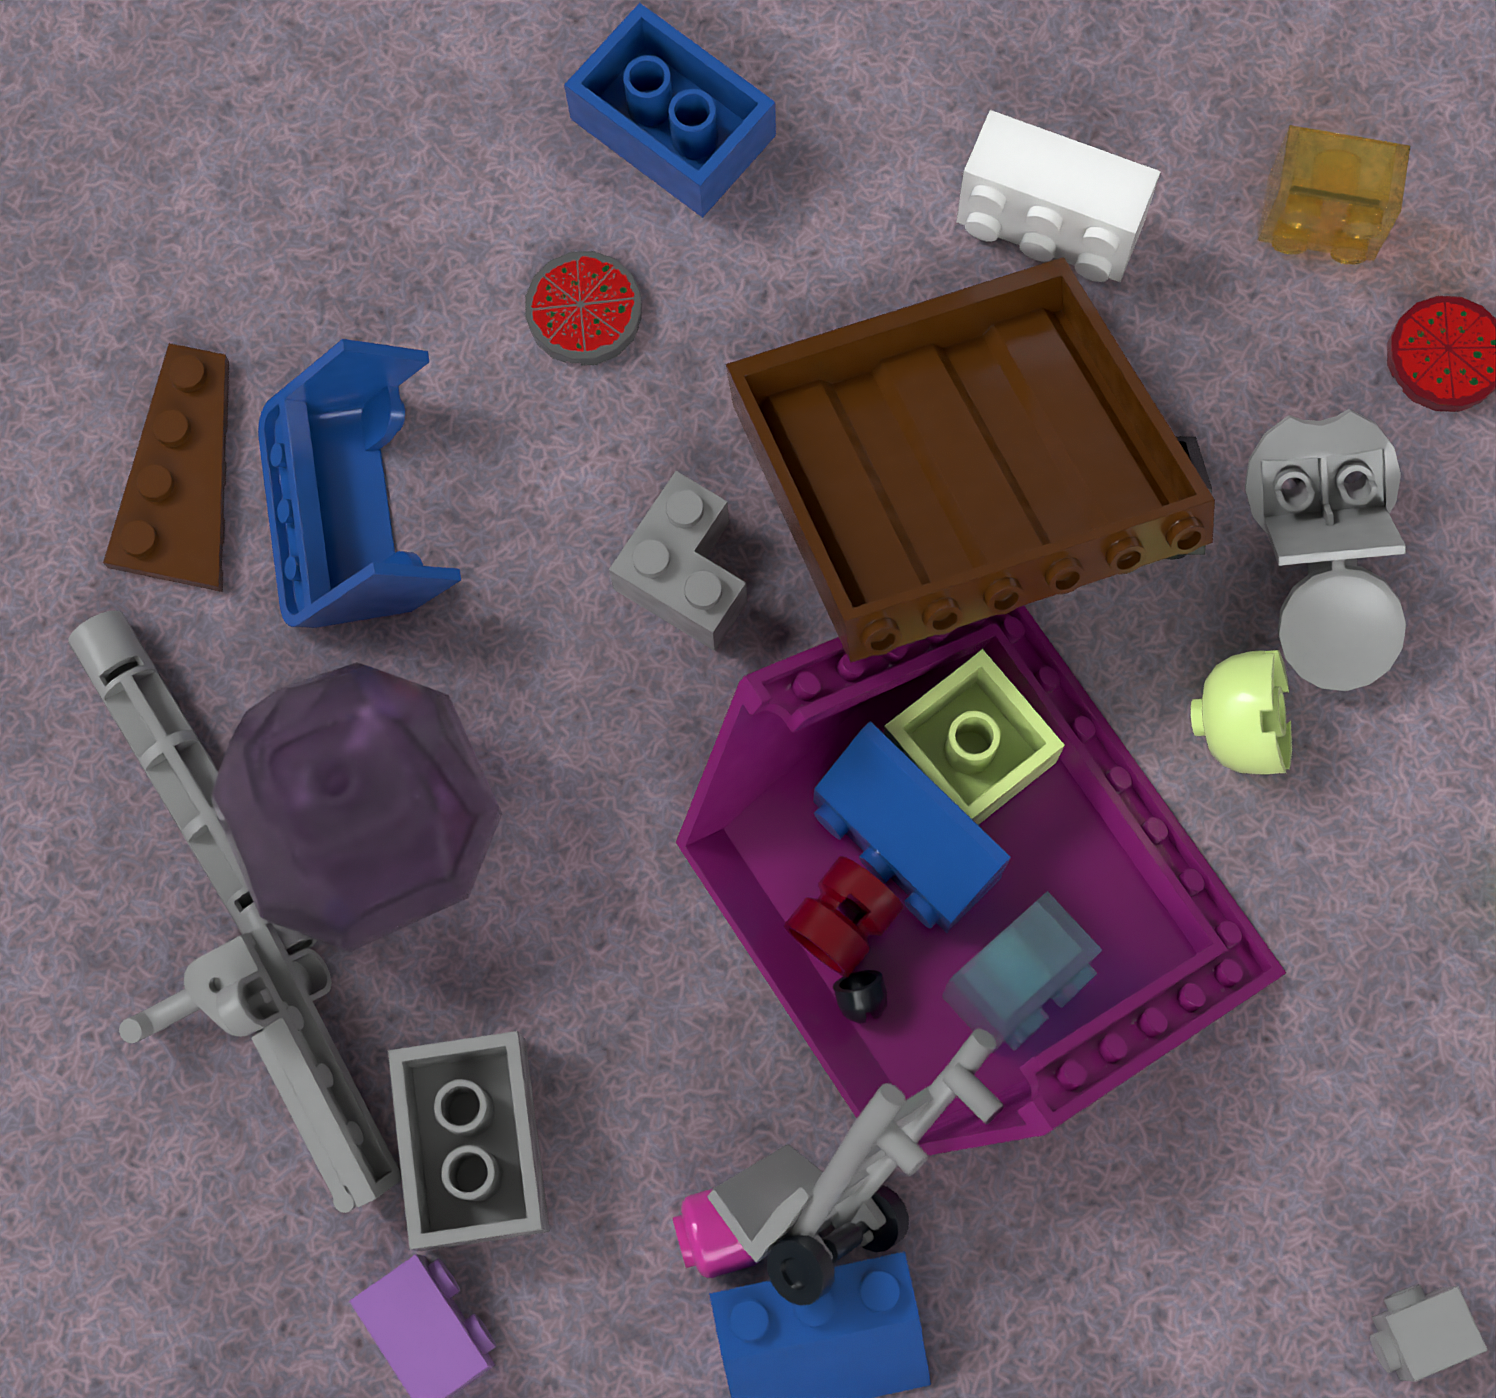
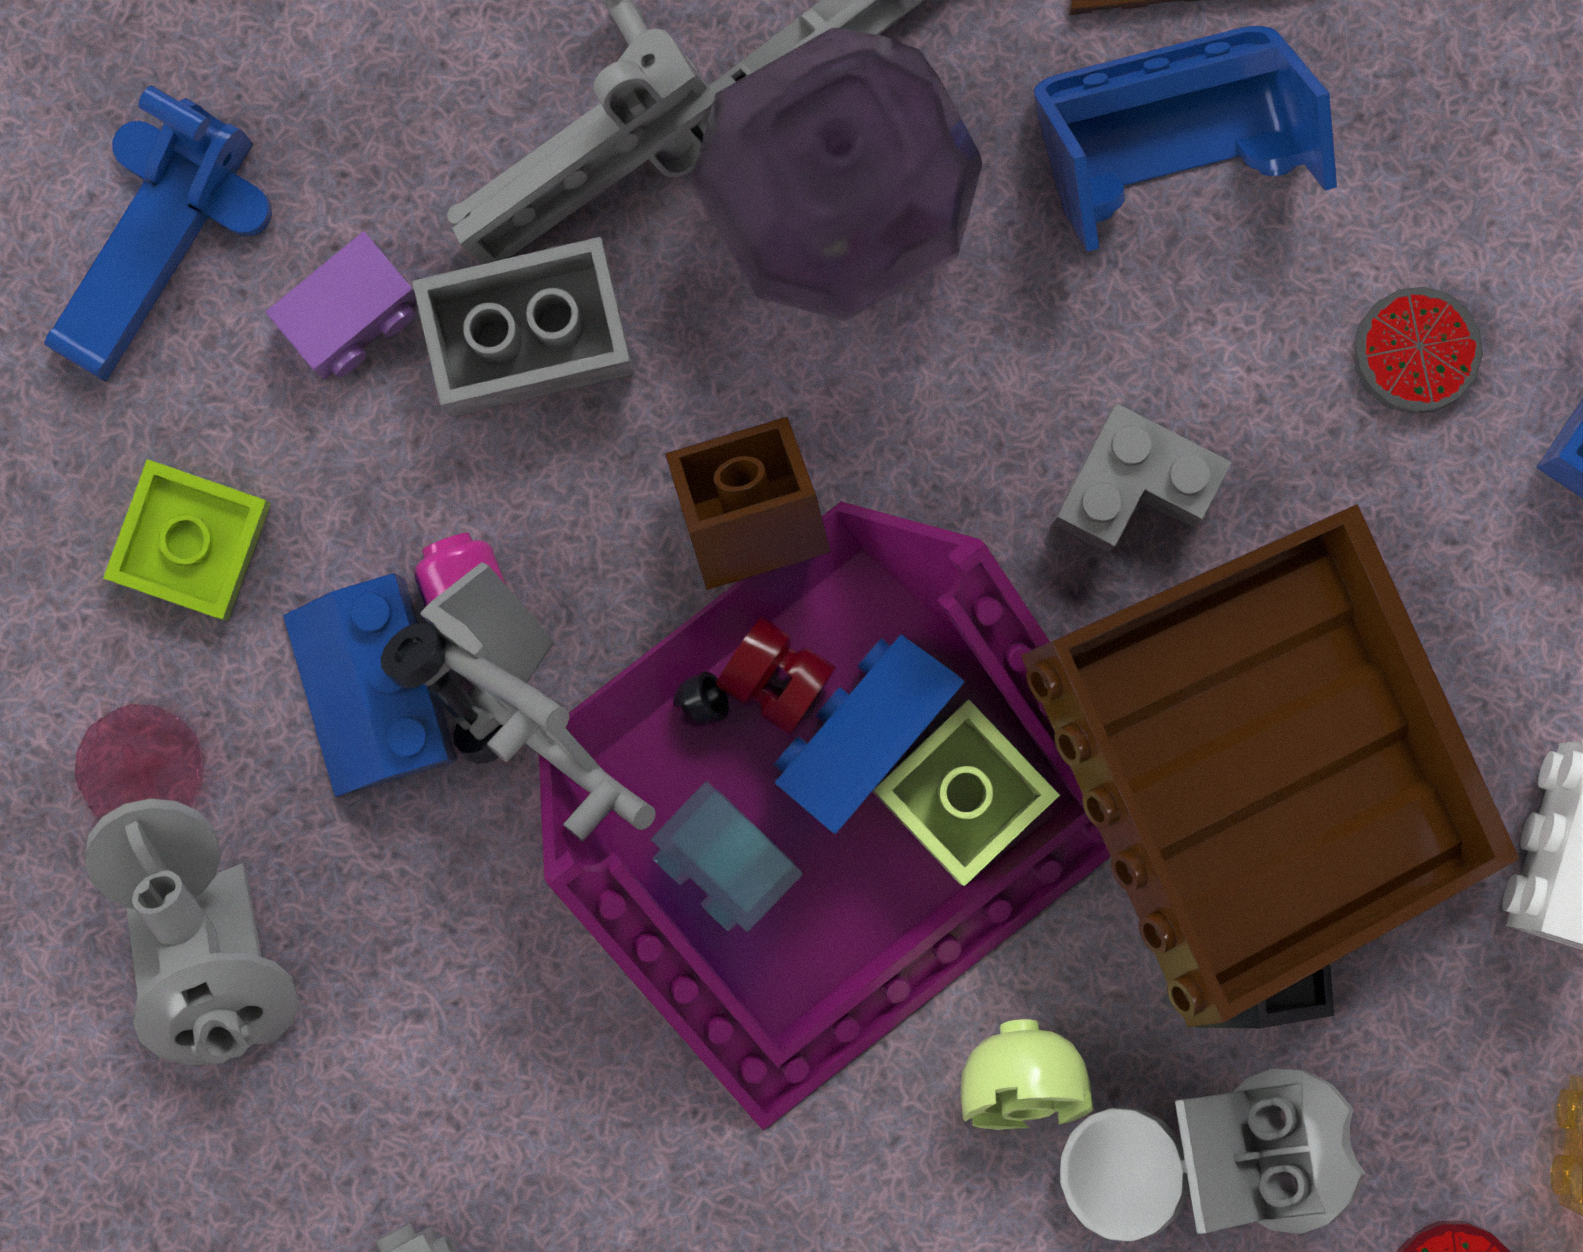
camera: 85 degrees right, 10 degrees up
(670, 927) = (748, 503): none -> reddish brown brick

